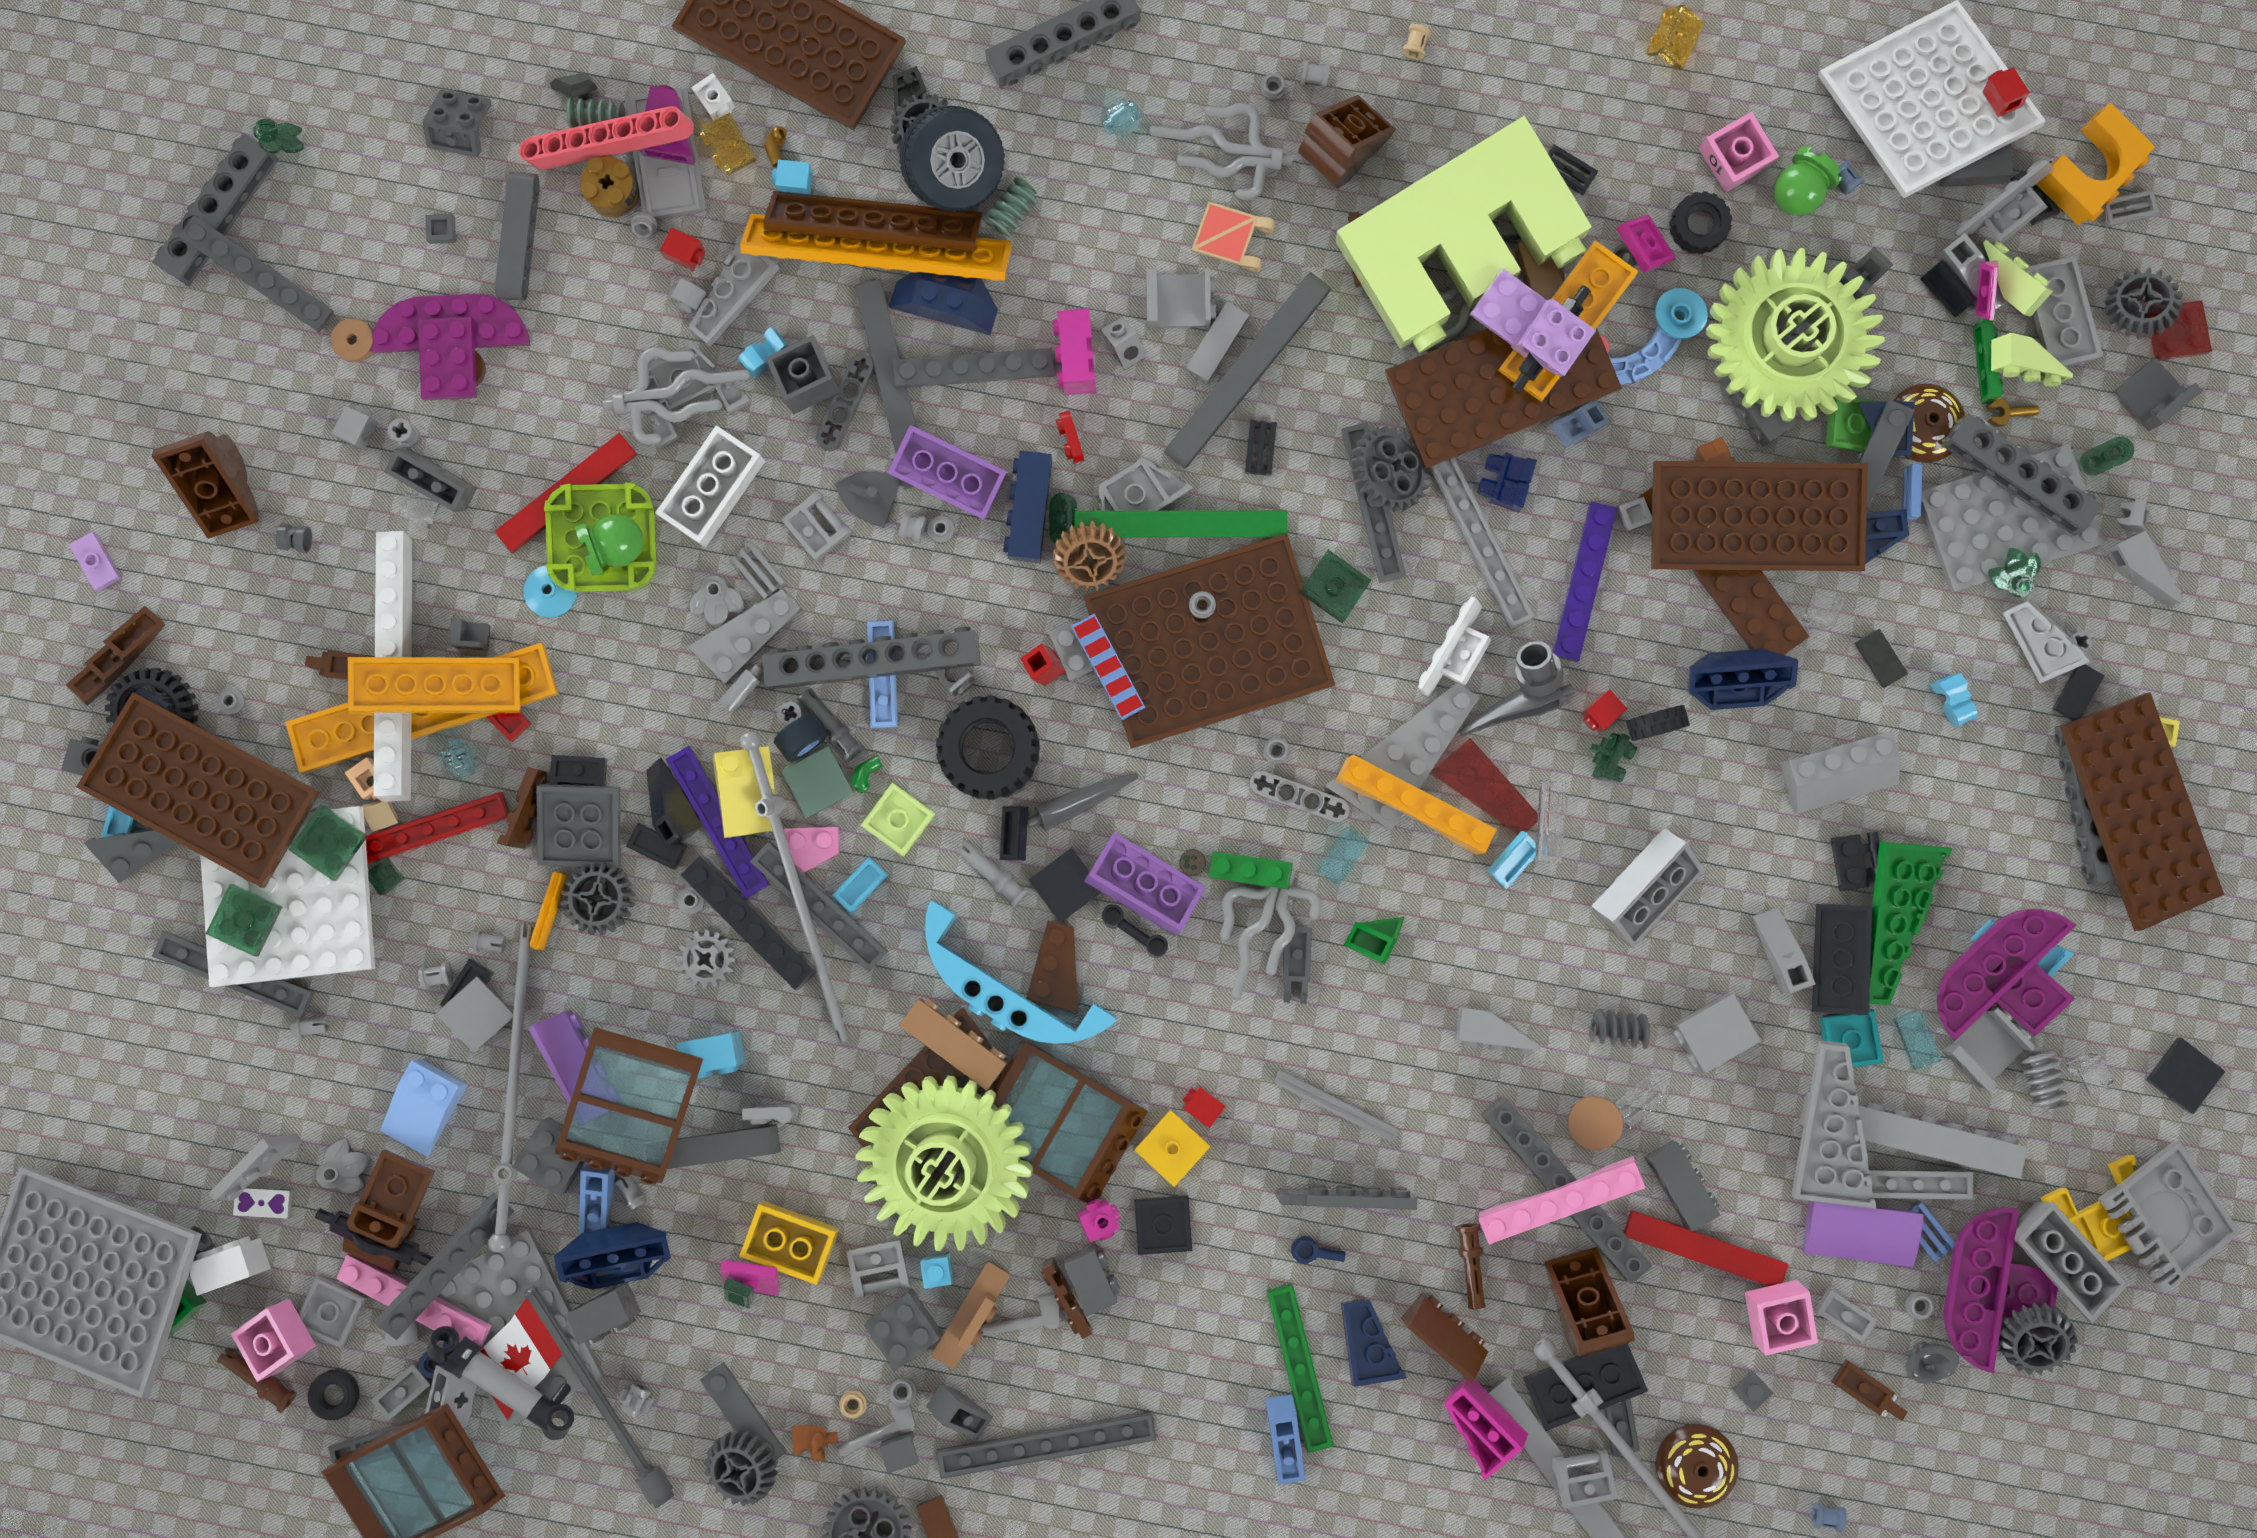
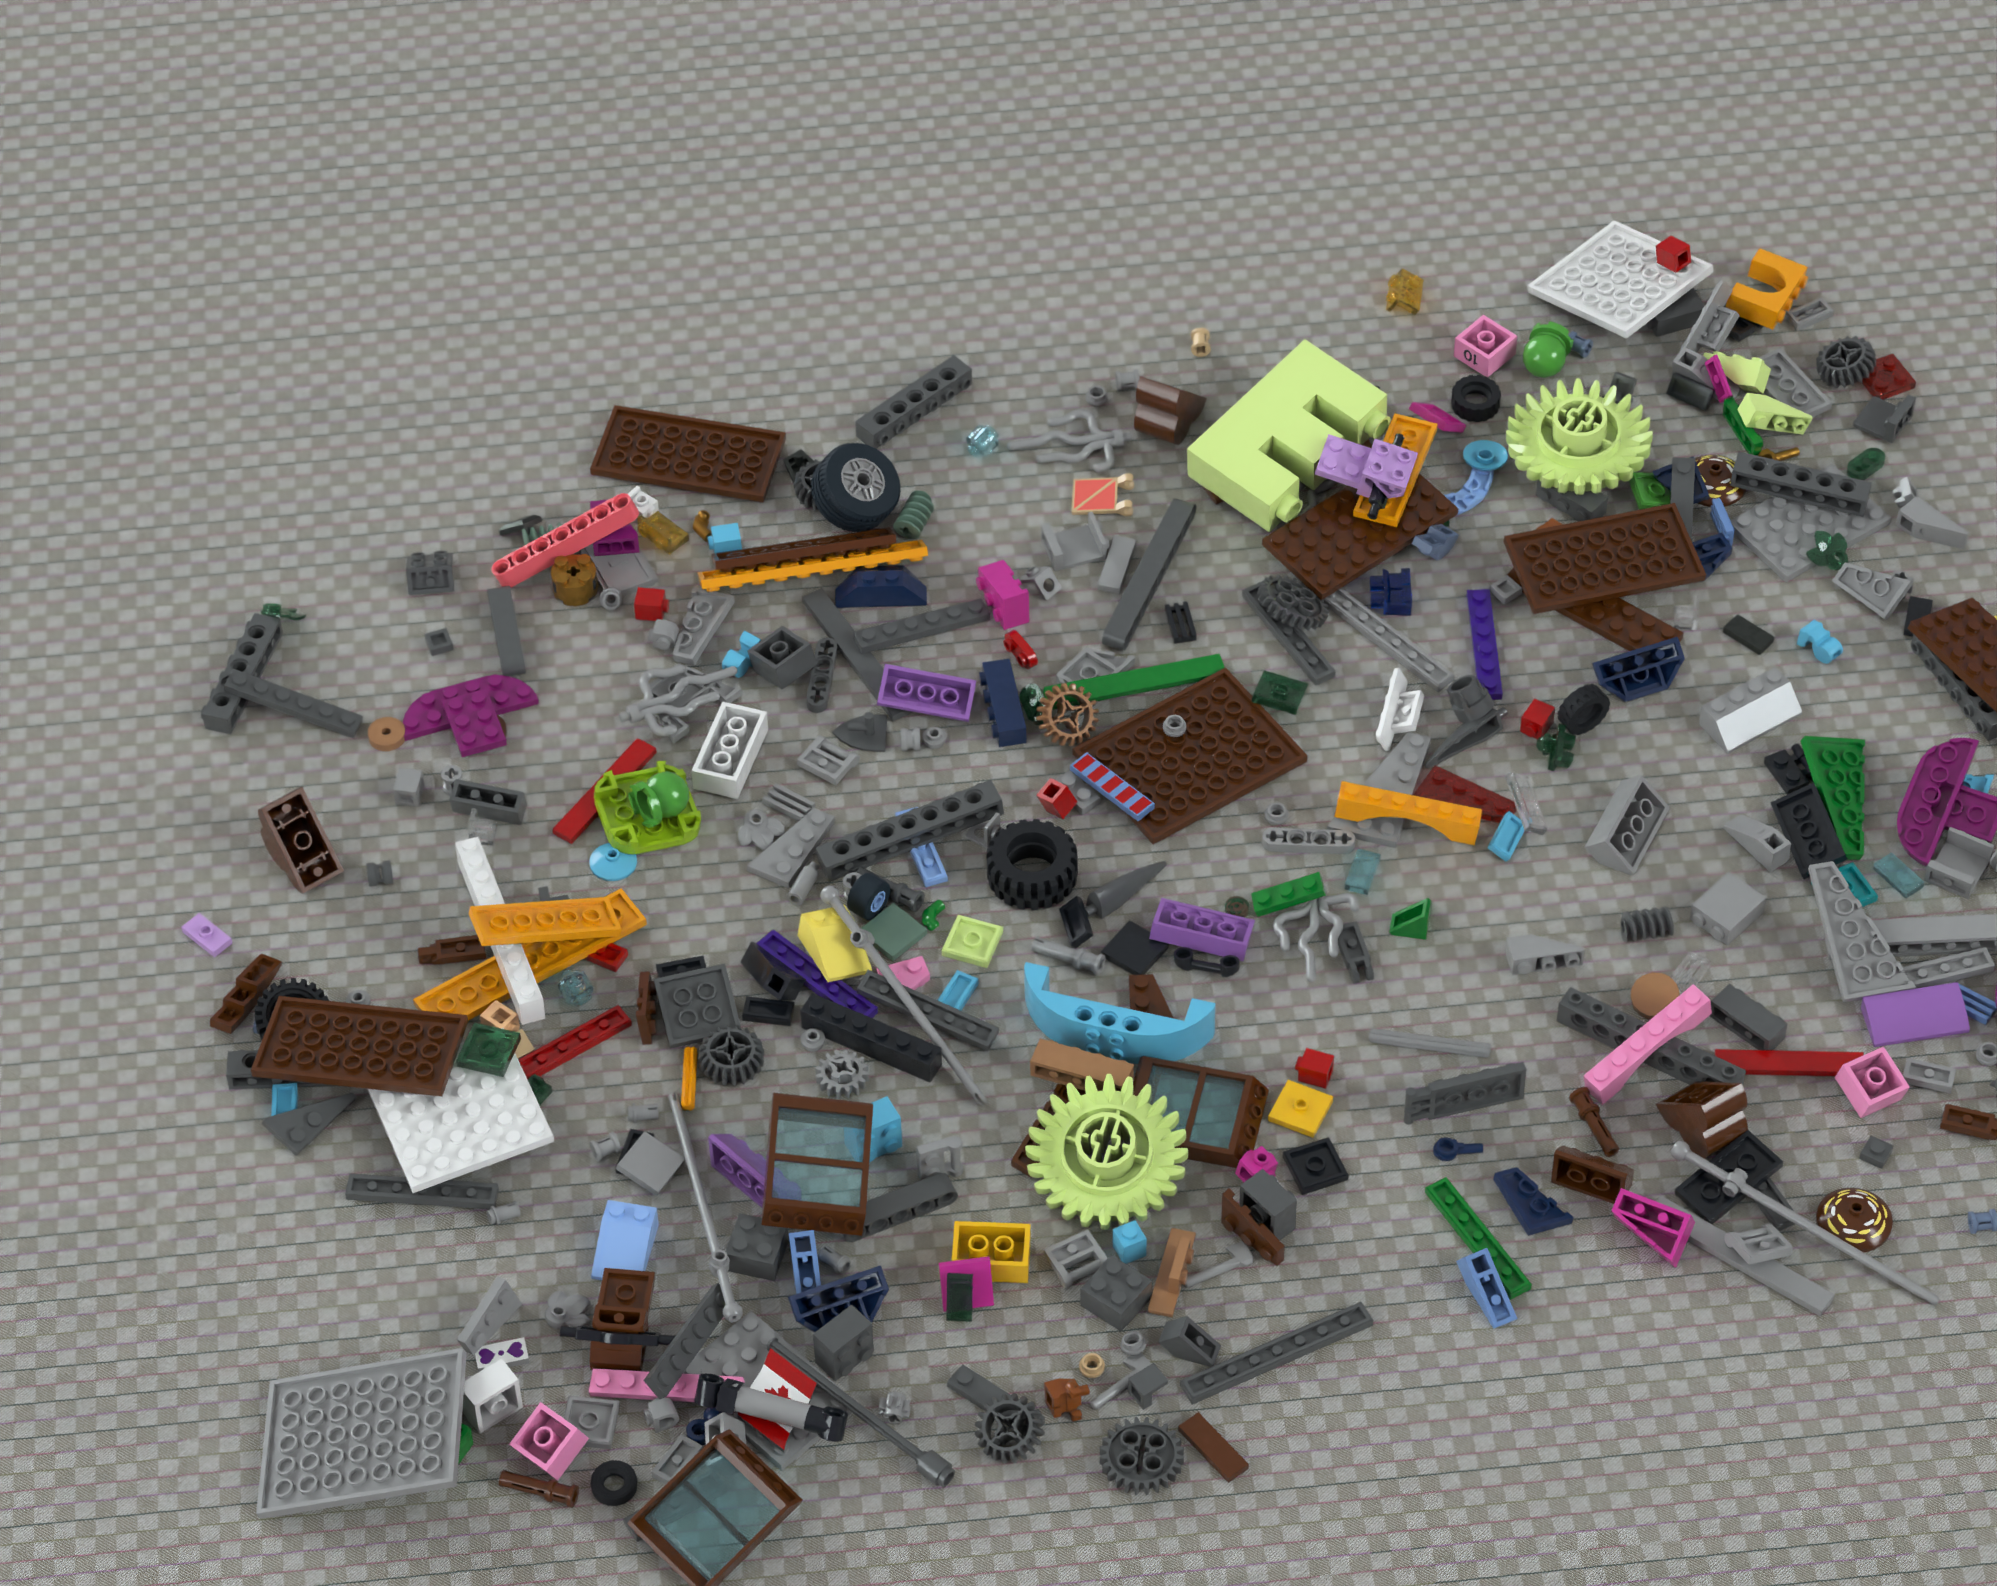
camera: 15 degrees left, 35 degrees down
(244, 920) = (431, 1122): clear green plate -> none

